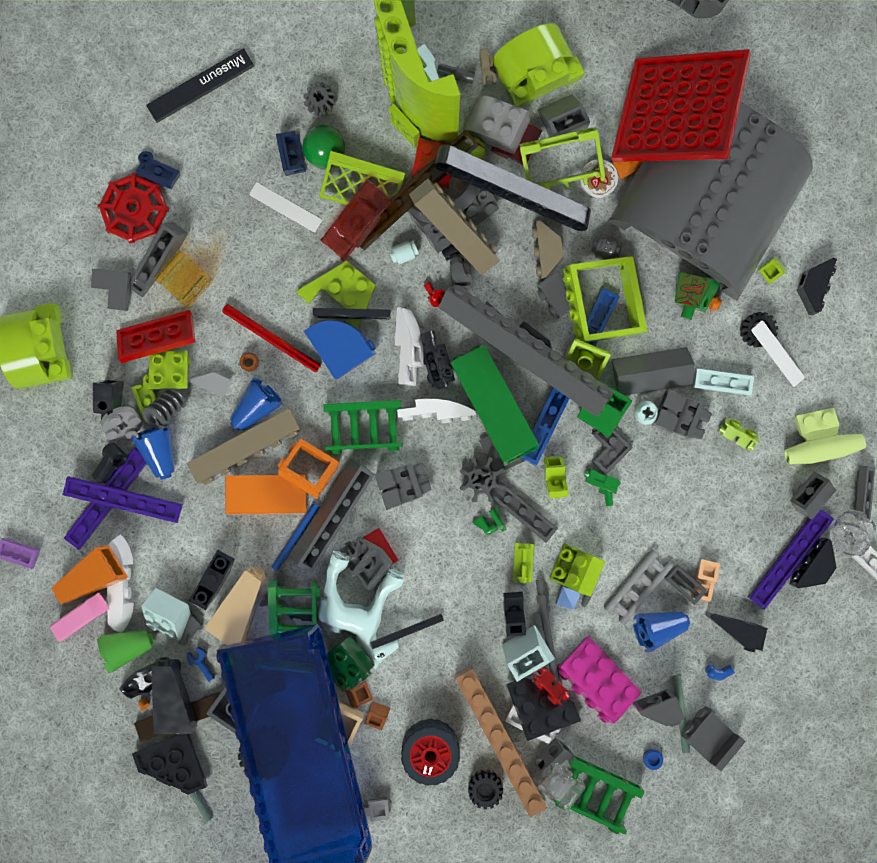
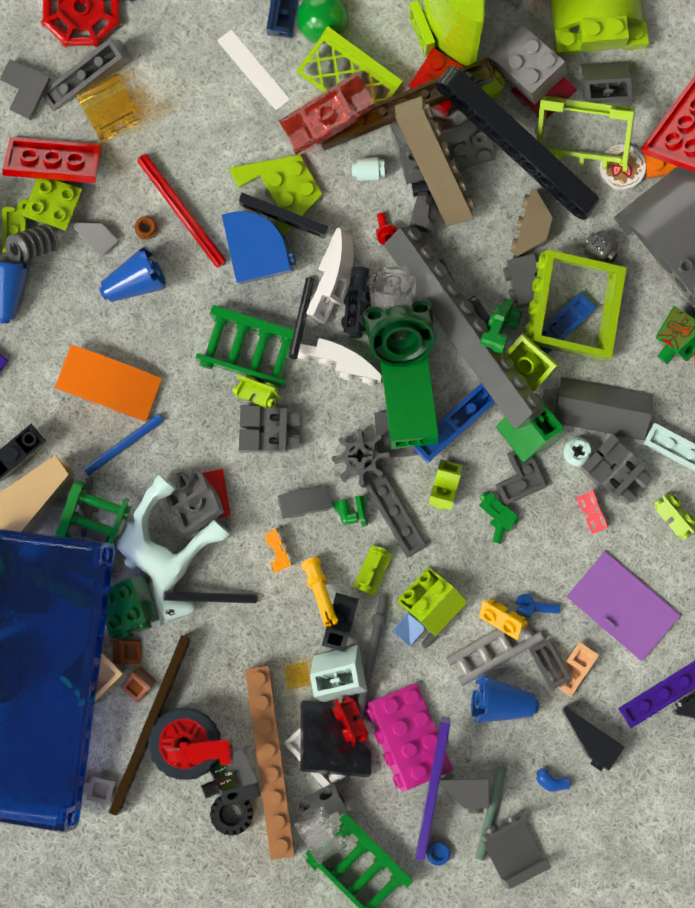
camera: 20 degrees right, 5 degrees down
(244, 446) = (104, 320): dark tan brick -> none
(302, 483) = (155, 384): orange window -> none
(331, 515) = (174, 433): dark grey brick -> none
(376, 457) = (265, 393): none -> lime hinge
(396, 389) = (301, 318): none -> black bar
(398, 732) = (151, 720): none -> dark brown tile
(449, 762) = (201, 752): none -> red hips
(450, 579) = (281, 558): none -> light orange piece
(451, 530) = (303, 502): none -> dark grey slope
(460, 343) = (392, 288): none -> clear brick
(477, 767) = (232, 781): none -> black torso
(479, 373) = (400, 333): none -> dark green piece
(485, 589) = (317, 582): none -> yellow pin
(496, 665) = (297, 676): none -> clear yellow plate
(552, 329) = (503, 315): none -> green plate
(633, 713) = (433, 788): none -> dark purple tile
(645, 565) = (497, 615): none -> yellow hinge
(656, 544) = (532, 606): none -> blue bar
(670, 451) = (591, 508): none -> coral piece
(730, 517) = (623, 605): none -> medium lavender container

